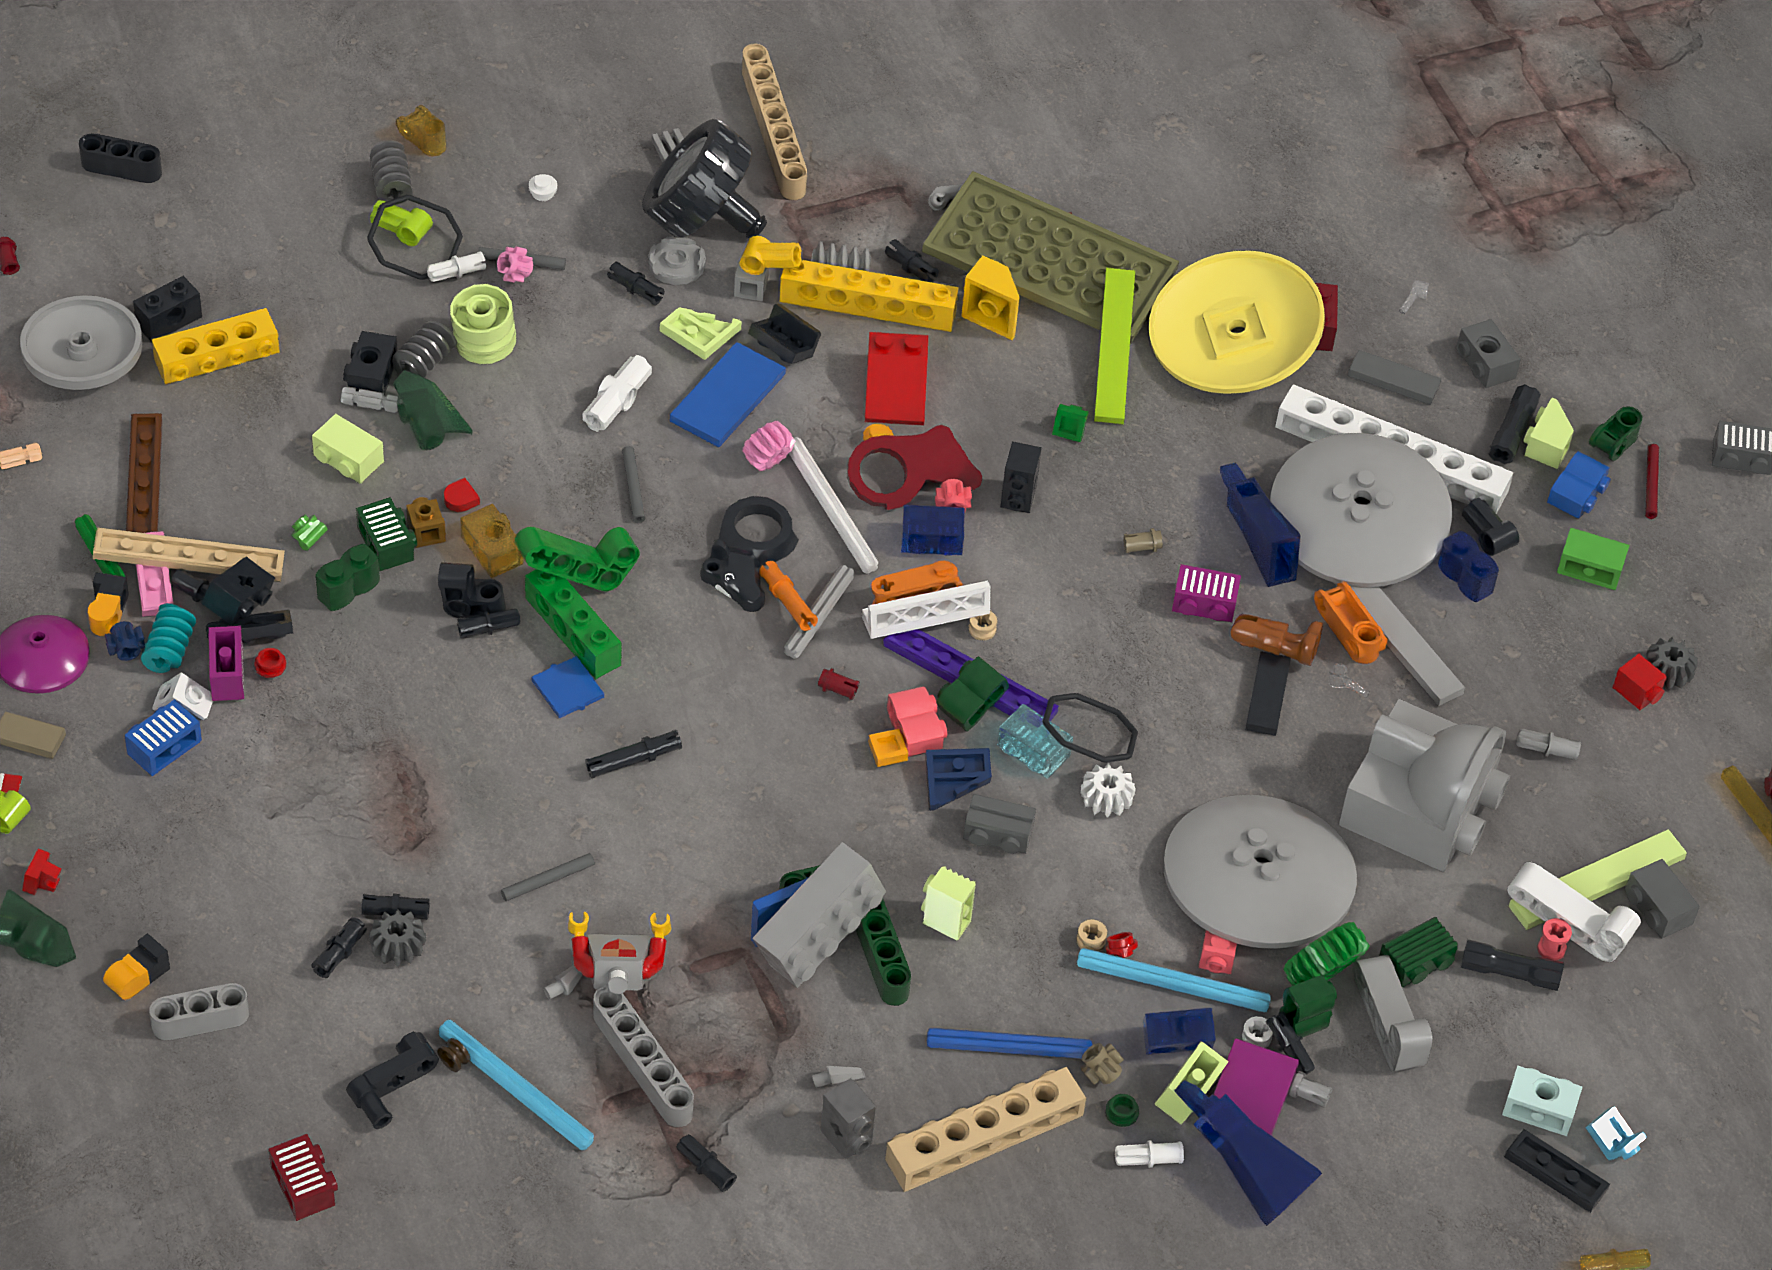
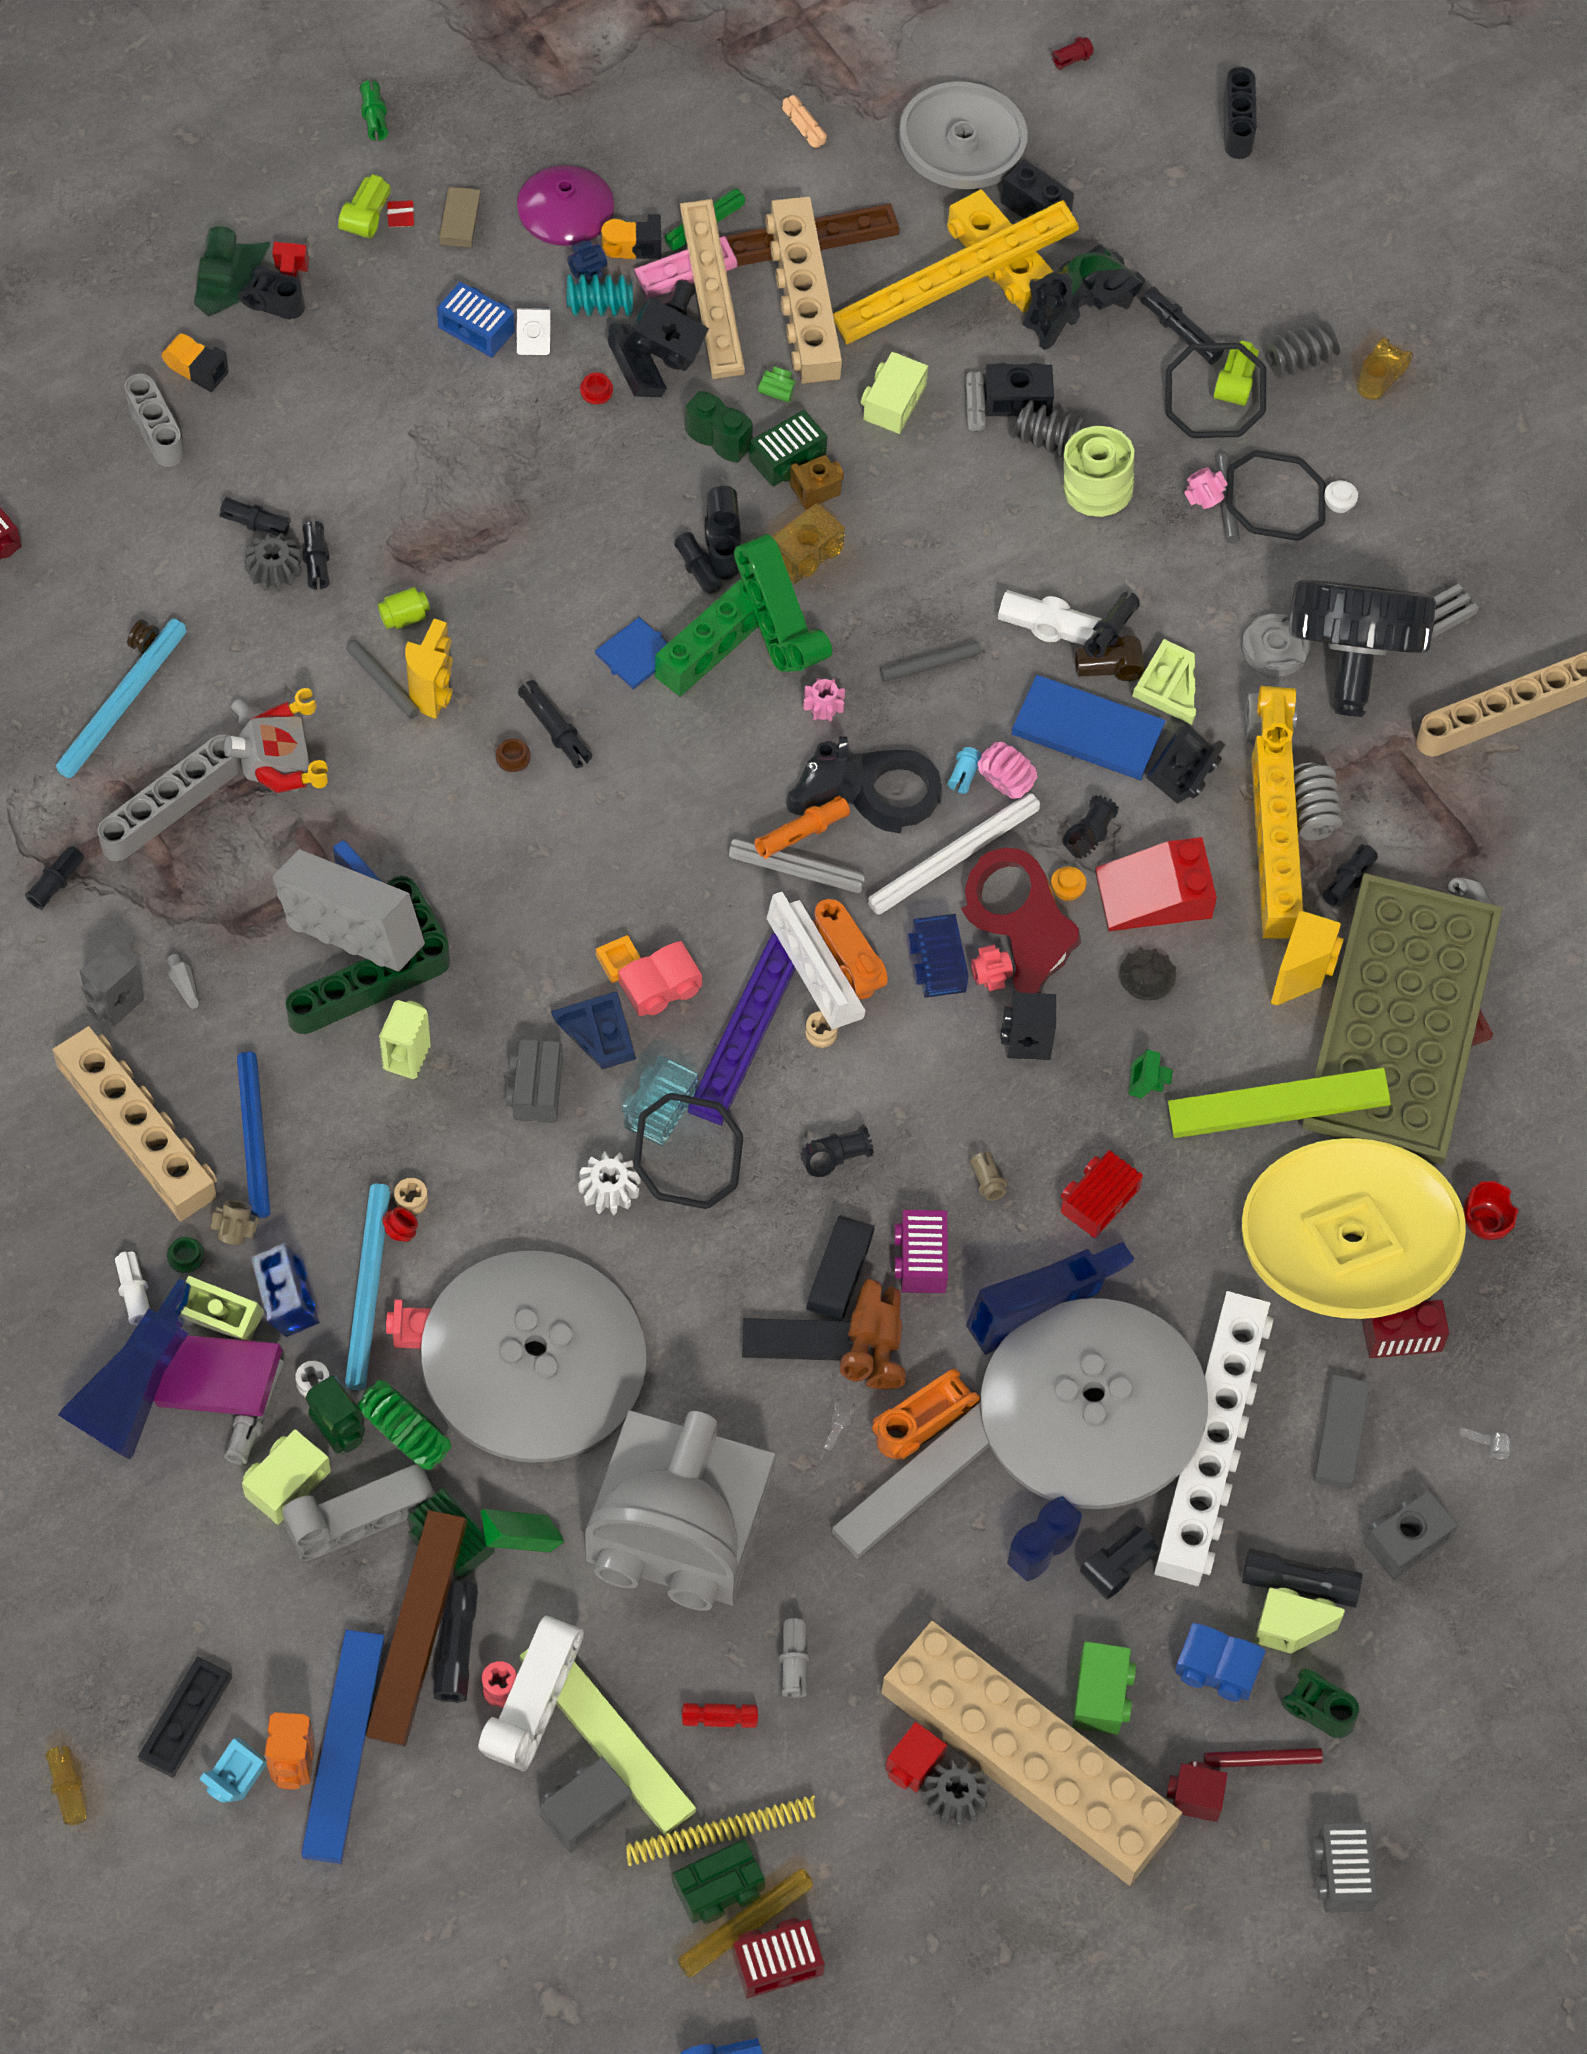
camera: 80 degrees right, 10 degrees up
(70, 896) = (274, 293): none -> black piece
(215, 486) = (796, 218): none -> tan brick
(226, 663) = (574, 346): magenta brick -> none
(237, 378) = (955, 272): none -> yellow tile
(289, 288) = (1090, 280): none -> black hips
(326, 249) = (1156, 302): none -> black pin
(414, 1061) = (92, 574): black beam -> none
(427, 410) = (968, 450): clear green panel -> none
(456, 267) = (1189, 438): white axle -> none
(460, 496) = (866, 507): red tile -> none
(478, 845) = (403, 608): none -> lime brick
(538, 201) = (1266, 532): none -> black piece
(565, 827) = (430, 670): none -> yellow brick
(635, 283) = (1223, 609): black pin -> none
(649, 350) = (1107, 629): none -> black pin
(658, 791) = (512, 755): none -> reddish brown plate
(659, 558) = (824, 699): none -> bright pink gear
(668, 360) = (1121, 659): none -> dark brown piece
(751, 479) = (964, 769): none -> medium azure pin
(829, 408) = (1092, 827): none -> black connector
(838, 683) = (699, 889): dark red pin -> none
(972, 693) = (707, 1024): dark green brick -> none
(977, 415) = (1132, 974): none -> clear smoke gear
(1102, 631) = (838, 1149): none -> black connector
(1172, 472) = (1101, 1193): none -> red brick
(1211, 650) = (840, 1267): none -> black beam
(1227, 242) = (1489, 1210): none -> red hair
(1290, 1042) = (290, 1414): black axle -> none
(1350, 1061) = (286, 1474): none -> yellowish green brick
(1425, 898) = (520, 1531): none -> green slope
(1504, 983) = (416, 1628): none -> reddish brown tile
(1527, 1106) = (267, 1665): light aqua brick -> none
(1590, 802) = (720, 1715): none -> red axle
(1593, 1060) = (343, 1747): none -> blue tile
(1608, 1082) = (290, 1750): none -> orange brick
(1641, 610) = (1031, 1752): none -> tan brick
(1668, 773) = (719, 1829): none -> light yellow piece
(1680, 518) = (1198, 1790): none -> dark red brick
(1732, 823) = (719, 1882): none -> dark green brick

